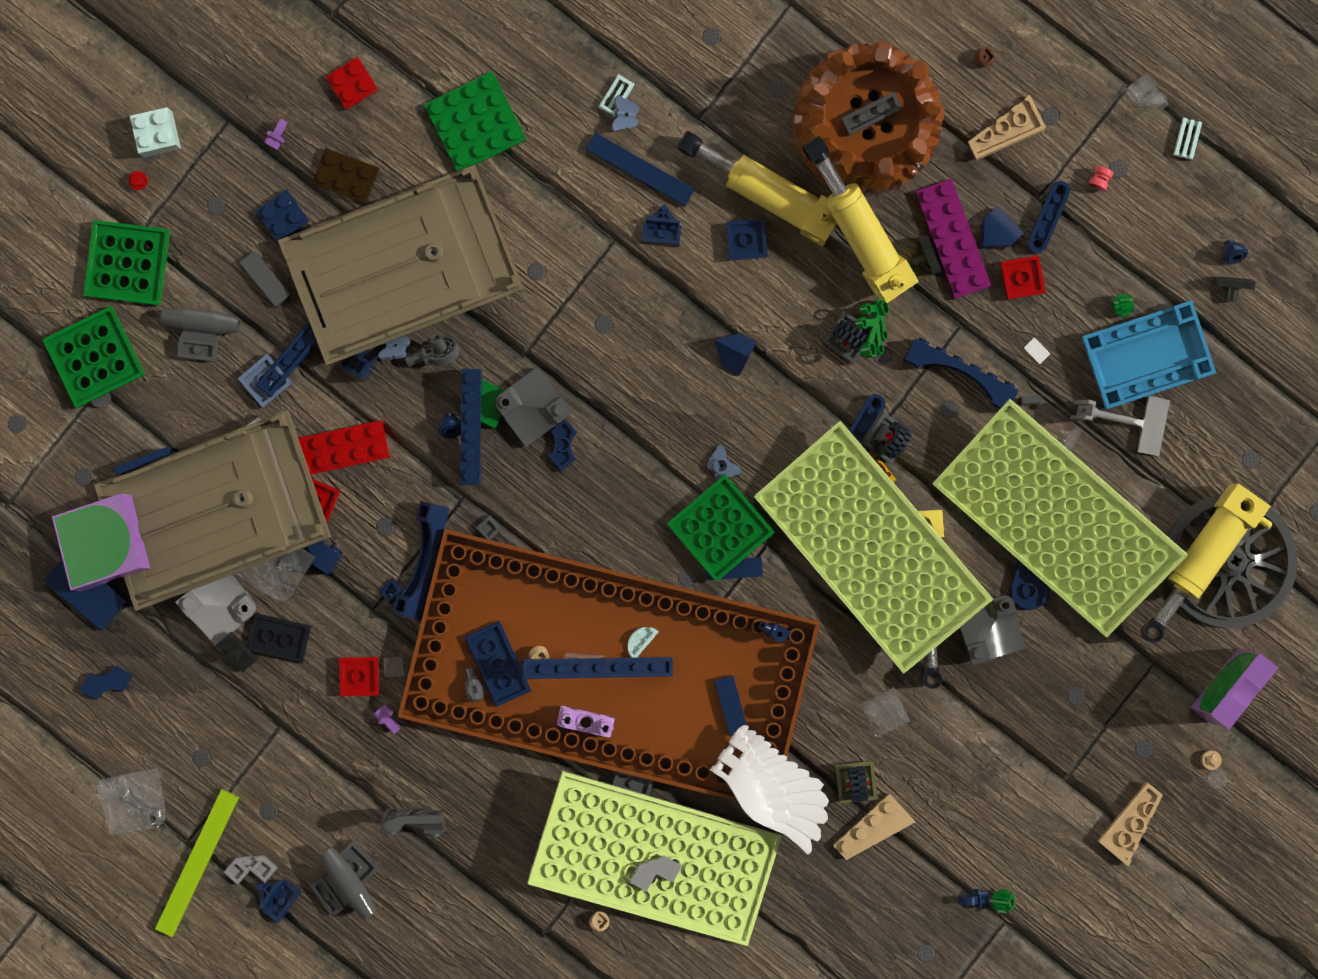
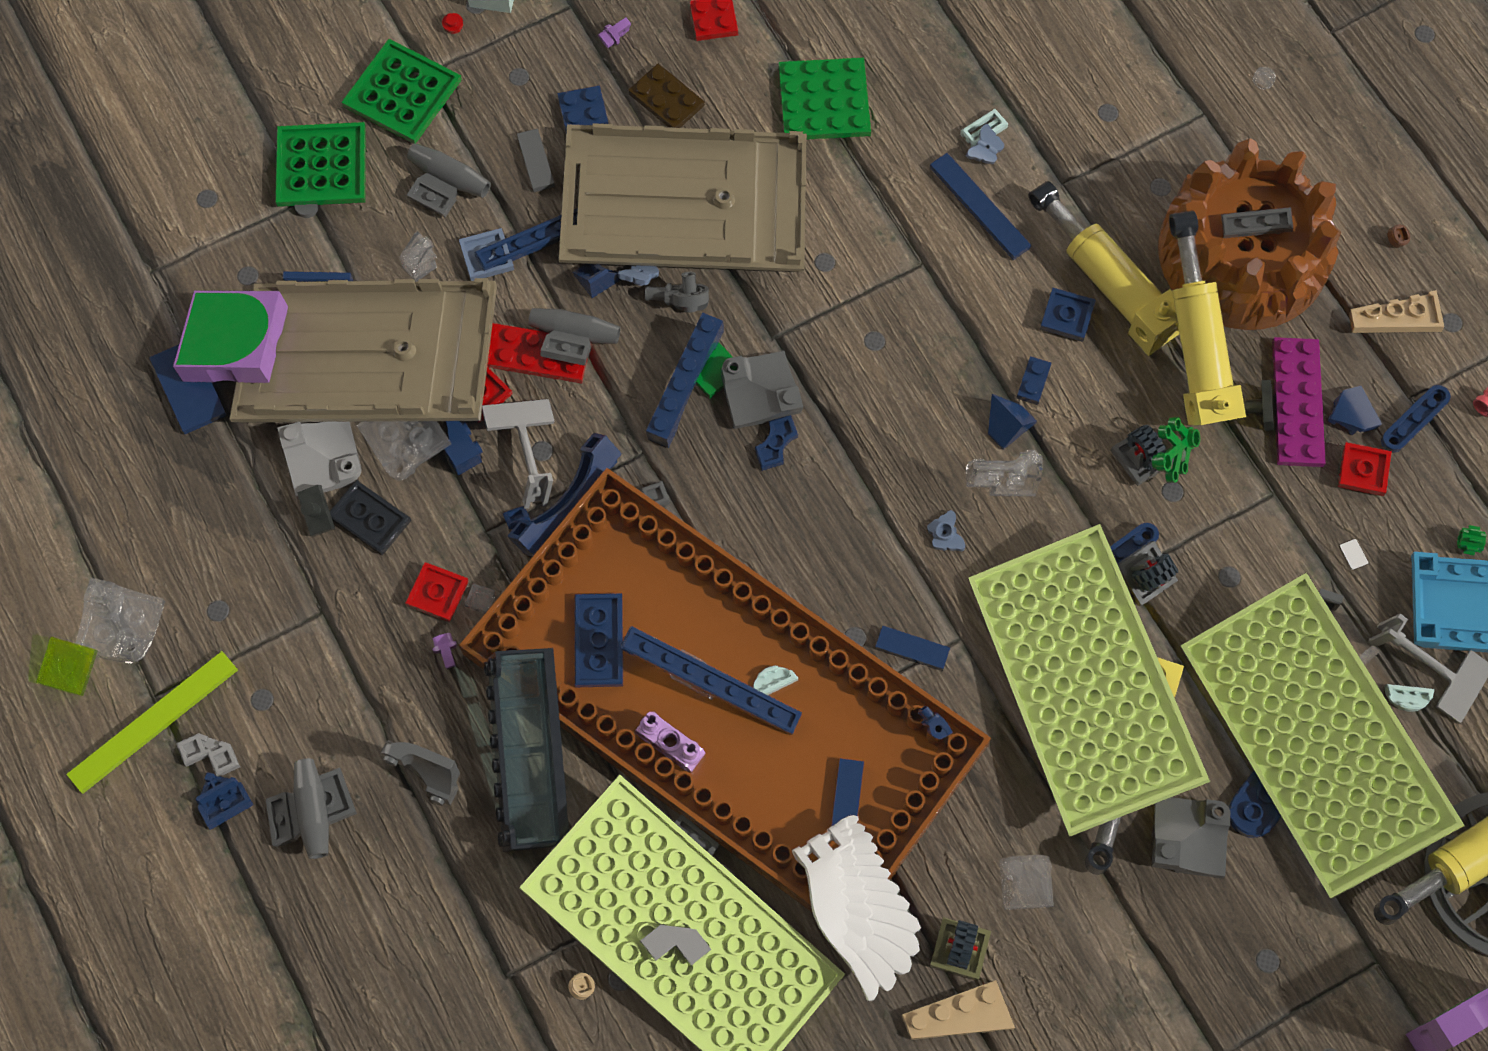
camera: 25 degrees right, 20 degrees down
(96, 685) = (168, 488): dark blue tile -> none
(111, 849) = (66, 666): none -> clear neon green tile
(214, 409) = (418, 257): none -> clear slope
(354, 510) = (519, 416): none -> light grey piece
(365, 424) = (571, 333): none -> dark grey plate
(450, 426) = (660, 373): dark blue brick -> none
(473, 687) = (561, 651): dark grey piece -> none
(484, 775) = (526, 749): none -> clear light blue window
(662, 229) = (978, 270): dark blue slope -> none
(720, 528) = (916, 596): green plate -> none
(735, 410) = (1007, 478): none -> clear slope
(741, 307) = (1033, 380): none -> dark blue plate
(922, 354) = (1223, 505): dark blue arch -> none
(1114, 452) = (1407, 697): none -> light aqua tile

